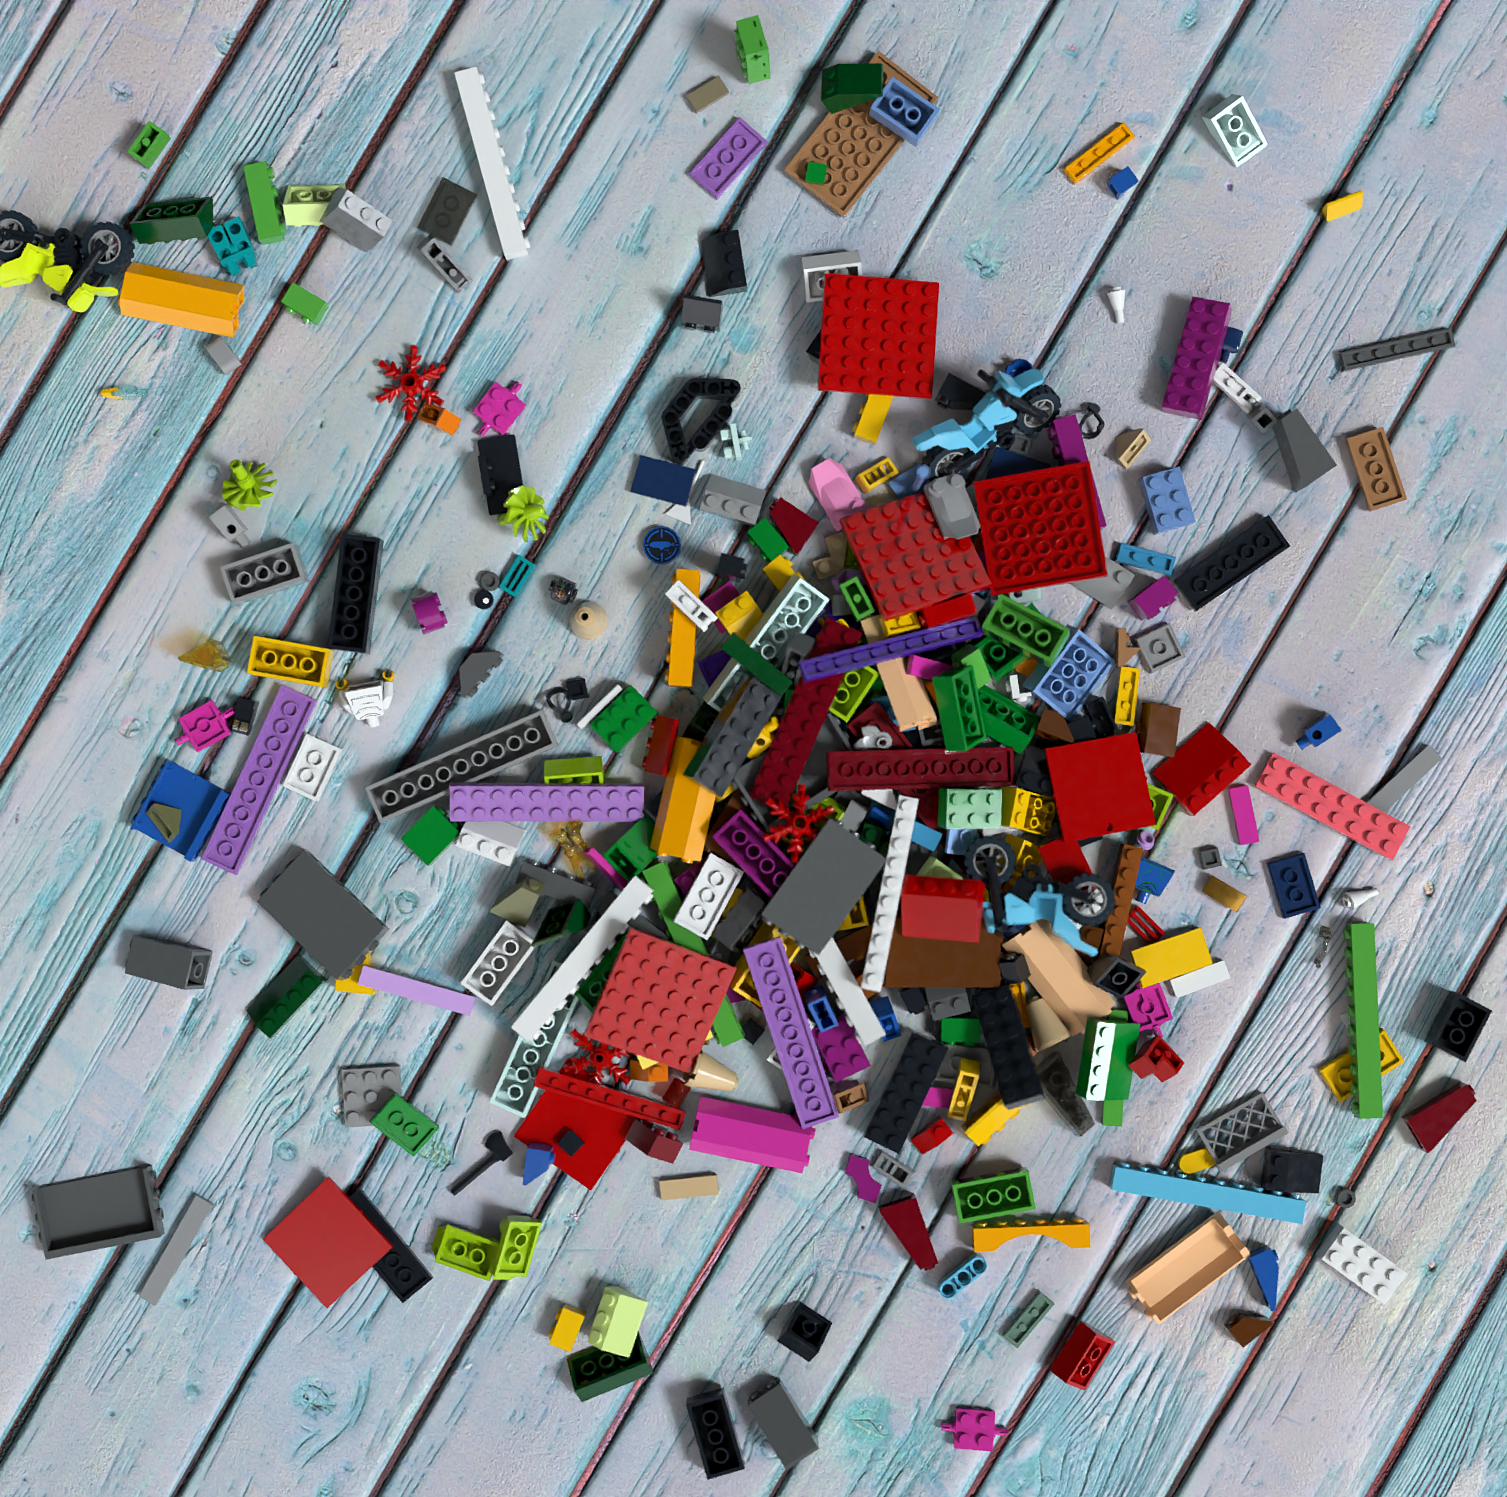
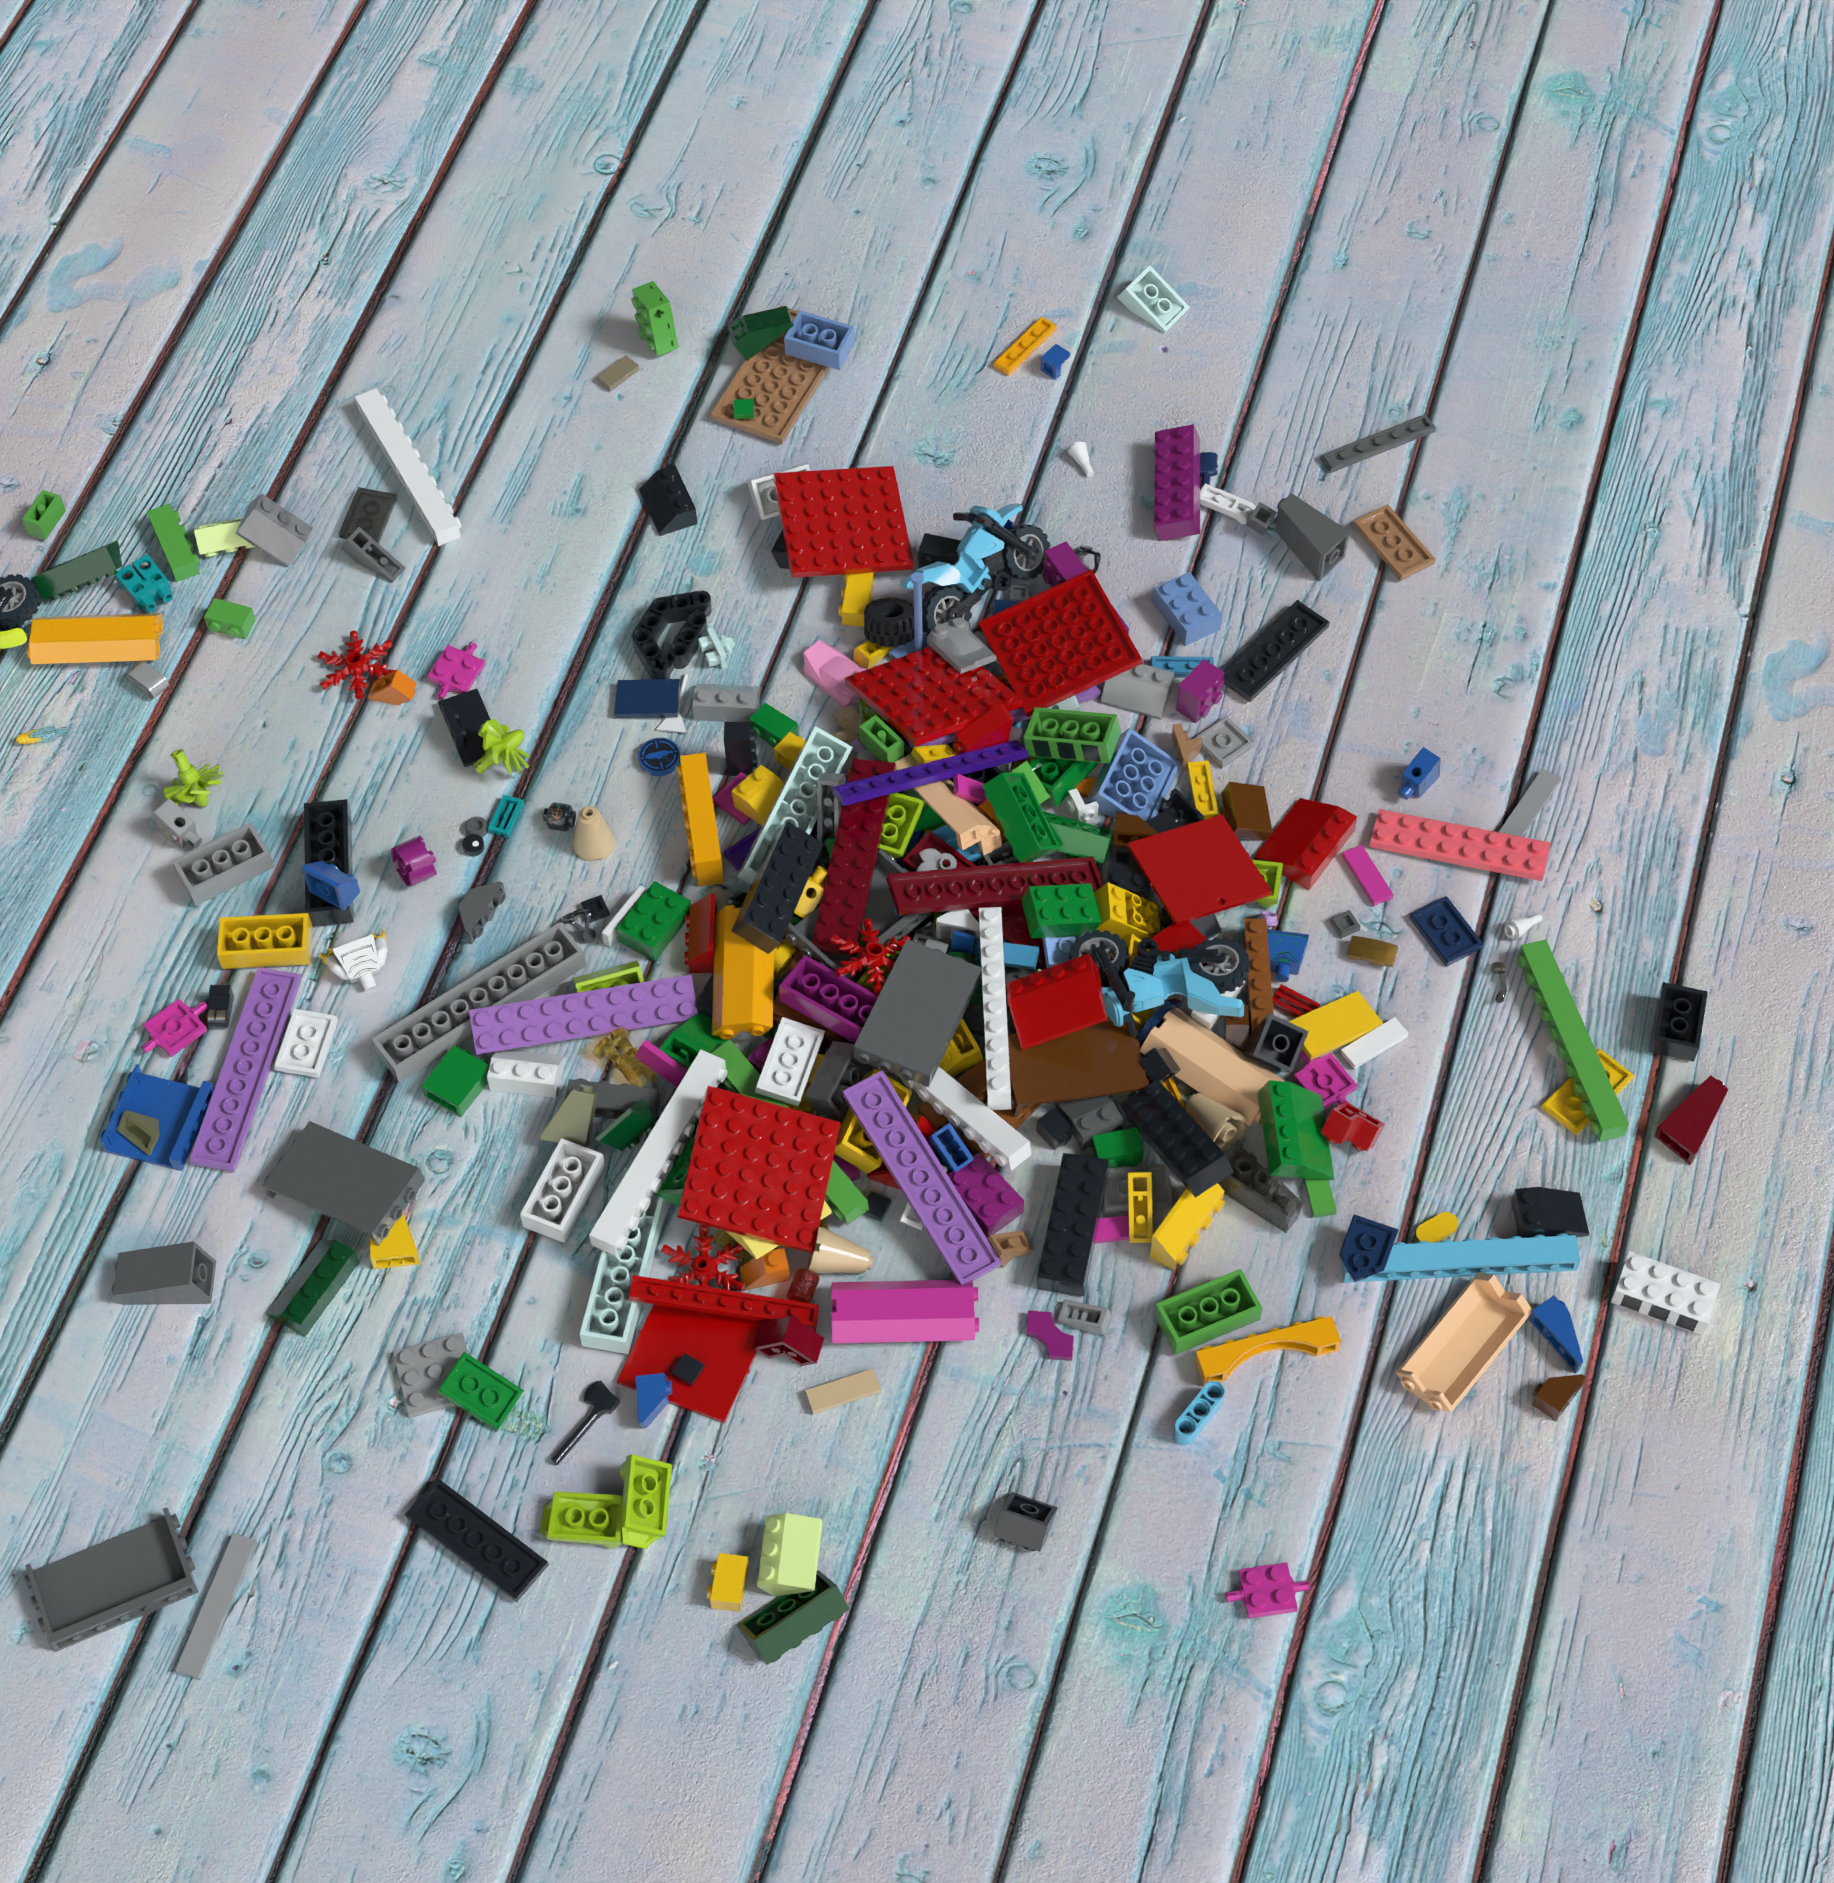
camera: 15 degrees left, 30 degrees down
(209, 655) = (167, 953): clear yellow slope -> none
(328, 1242) = (408, 1549): red piece -> none
(352, 631) = (331, 884): none -> blue slope
(416, 990) = (468, 1241): lavender tile -> none
(690, 605) = (703, 781): white plate -> none
(701, 313) = (654, 541): black slope -> none
(715, 1433) = (945, 1662): black brick -> none
(728, 158) = (650, 419): medium lavender tile -> none
(756, 664) = (780, 812): dark green tile -> none
(783, 1423) = (1027, 1631): dark grey slope -> none
(793, 524) = (798, 704): dark red slope -> none
(884, 1012) = (1035, 1166): blue slope -> none
(892, 469) = (889, 622): none -> black tyre
(909, 1227) = (1123, 1376): dark red slope -> none
(932, 1135) = (1118, 1266): red slope -> none
(1028, 1319) = (1294, 1449): sand green tile -> none
(1082, 1355) = (1372, 1471): red slope -> none
(1130, 446) = (1136, 572): tan slope -> none
(1135, 1175) = (1366, 1247): none -> dark blue tile
(1250, 1147) = (1493, 1196): light grey fence -> none
(1343, 206) = (1281, 339): yellow slope -> none
(1345, 1198) = (1621, 1232): dark grey tile -> none

